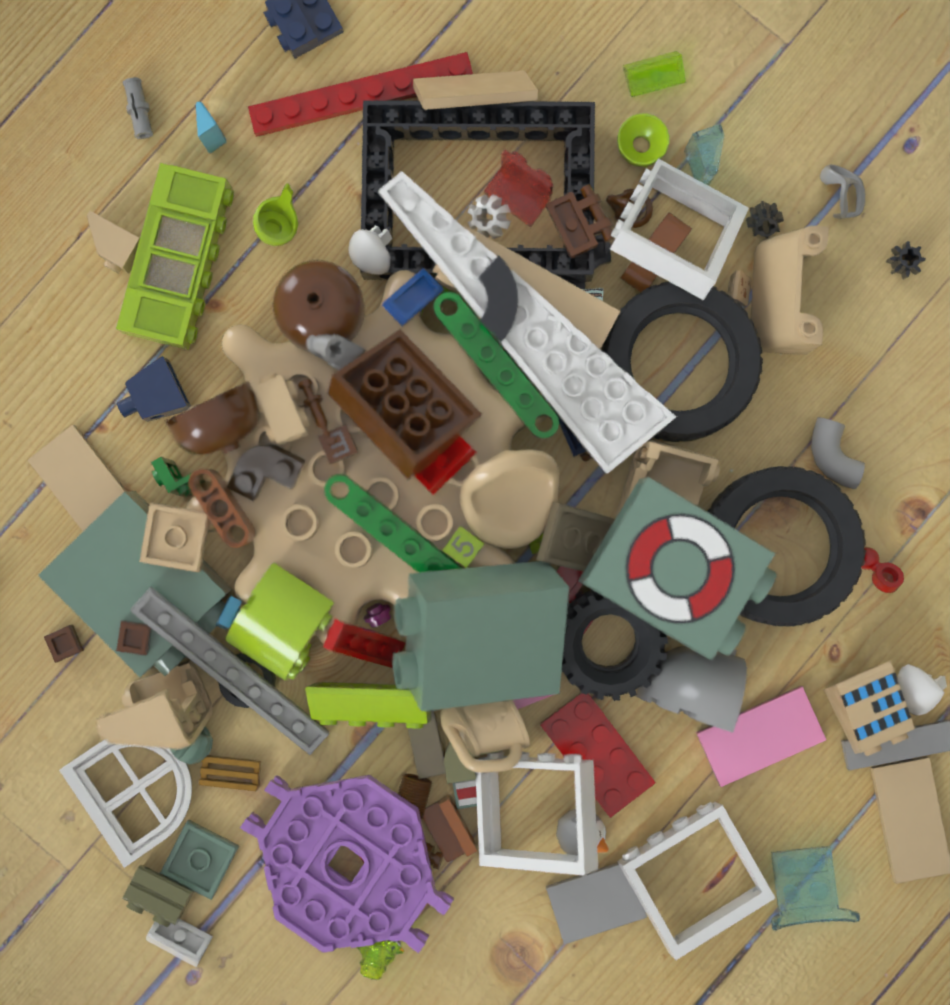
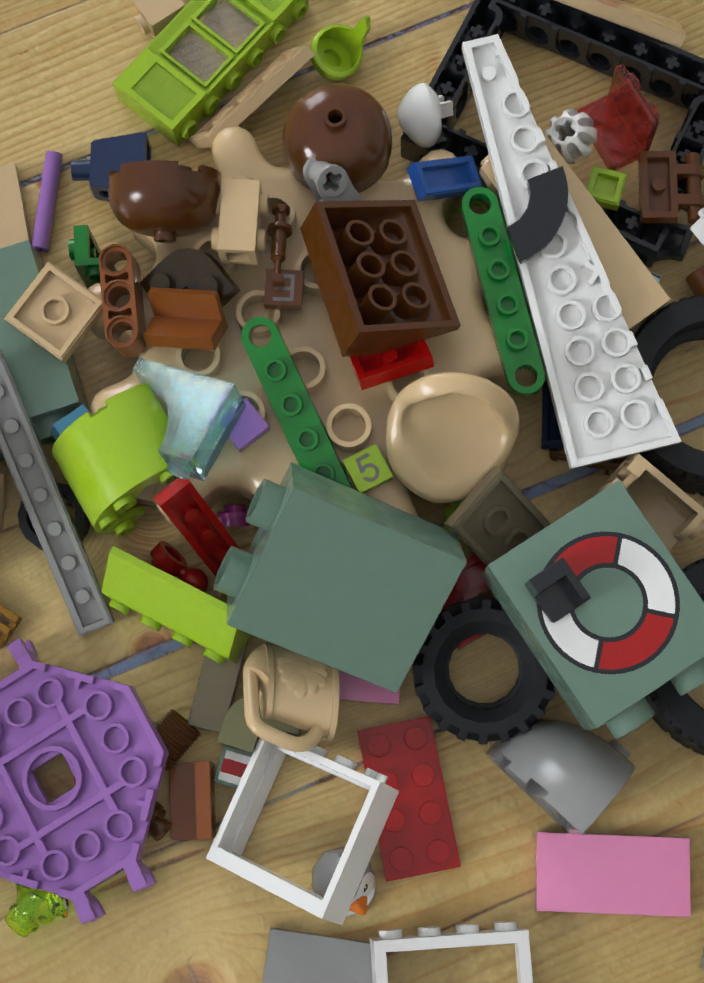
camera: 30 degrees right, 10 degrees down
(113, 442) = (47, 201): none -> medium lavender piece
(229, 288) = (253, 94): none -> tan tile
(277, 503) = (185, 319): none -> dark orange panel
(326, 572) = (199, 416): none -> clear light blue arch
(349, 671) = (172, 562): none -> red plate
(359, 560) = (248, 428): none -> medium lavender tile
(532, 242) = (606, 186): none -> lime tile
(641, 579) = (557, 590): none -> black panel

